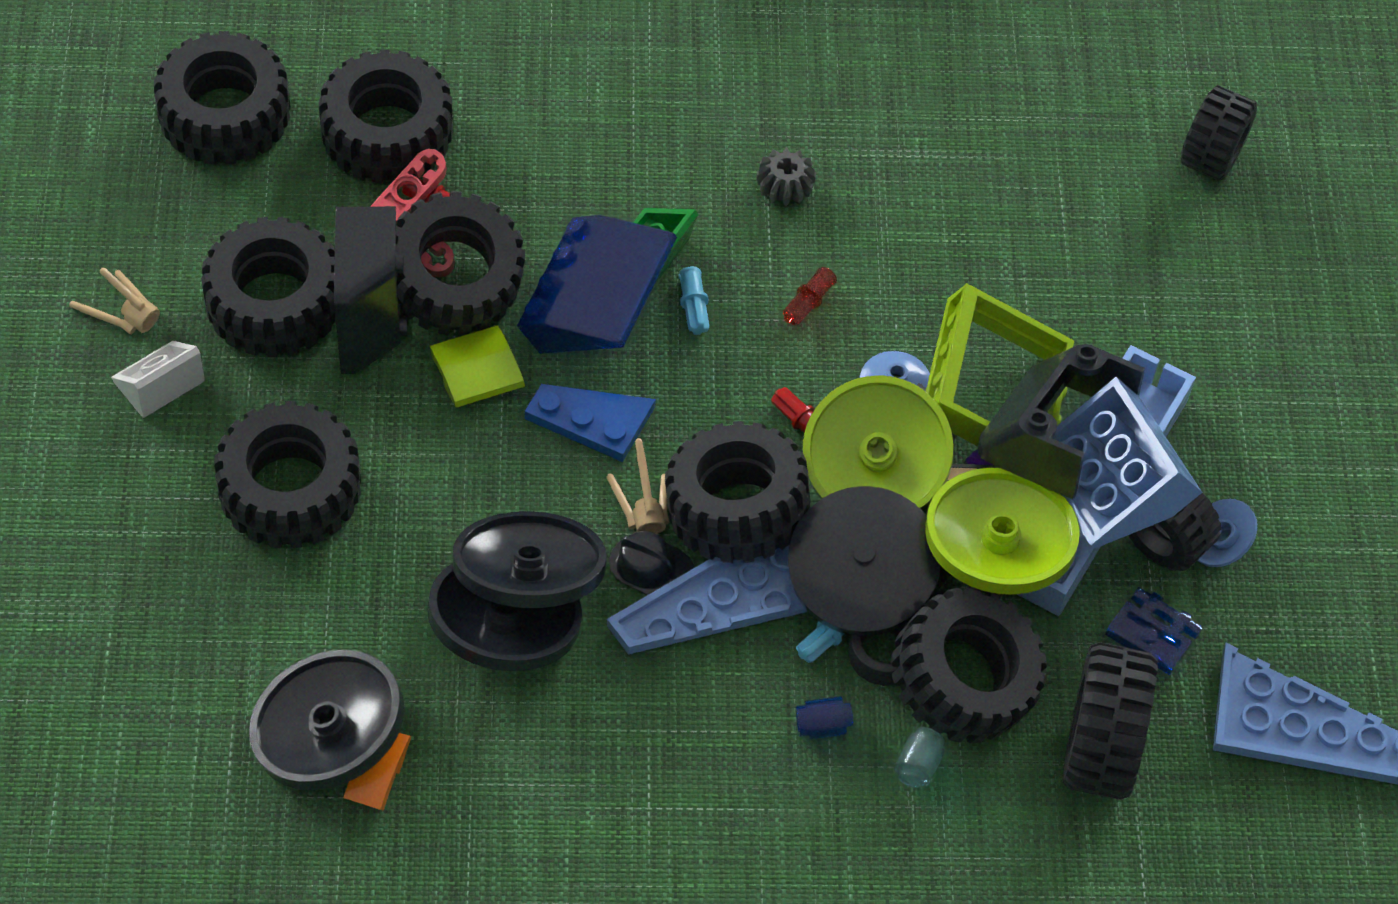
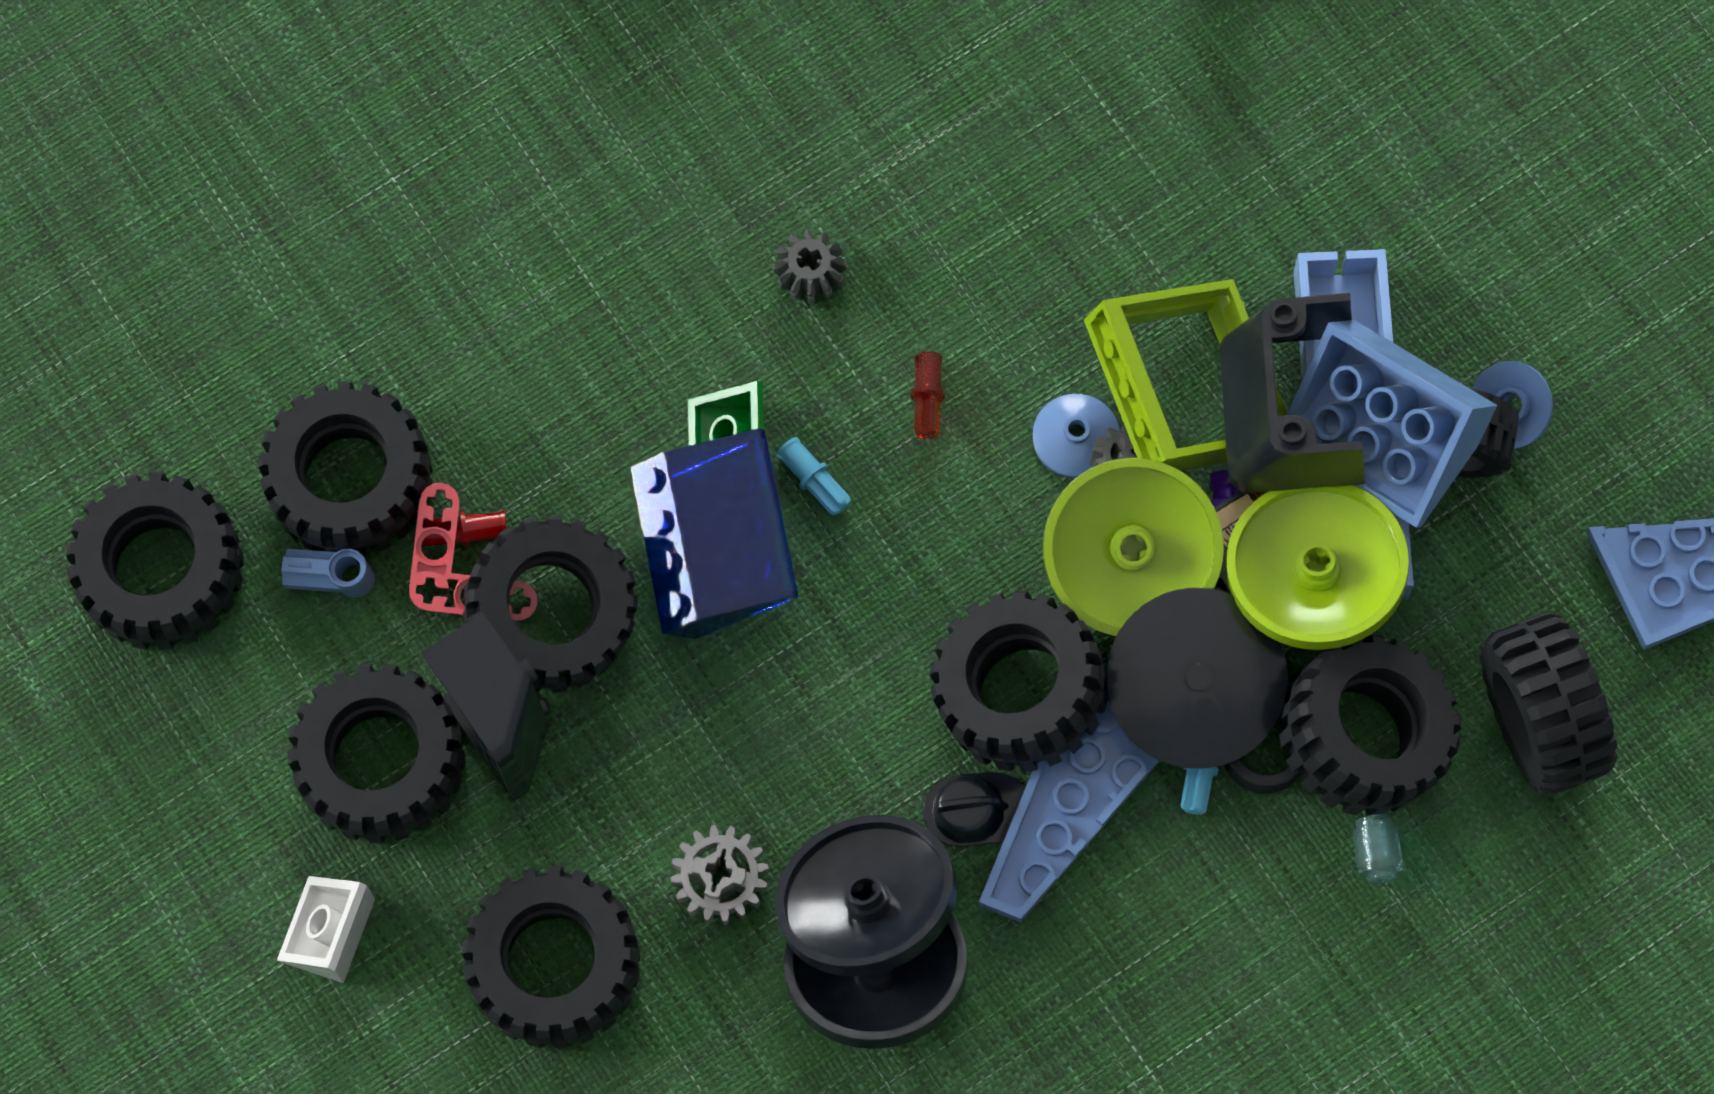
camera: 25 degrees left, 15 degrees up
(137, 310) = (252, 869): tan plant -> none
(332, 172) = (324, 572): none -> medium blue piece
(442, 497) = (700, 870): none -> light grey gear
(477, 366) = (646, 700): lime slope -> none
(591, 417) = (801, 681): blue wing -> none
(647, 514) = (937, 755): tan plant -> none
(792, 408) = (1007, 539): red axle -> none
(823, 717) = (1258, 867): clear blue brick -> none
(1141, 631) = (1510, 567): clear blue plate -> none

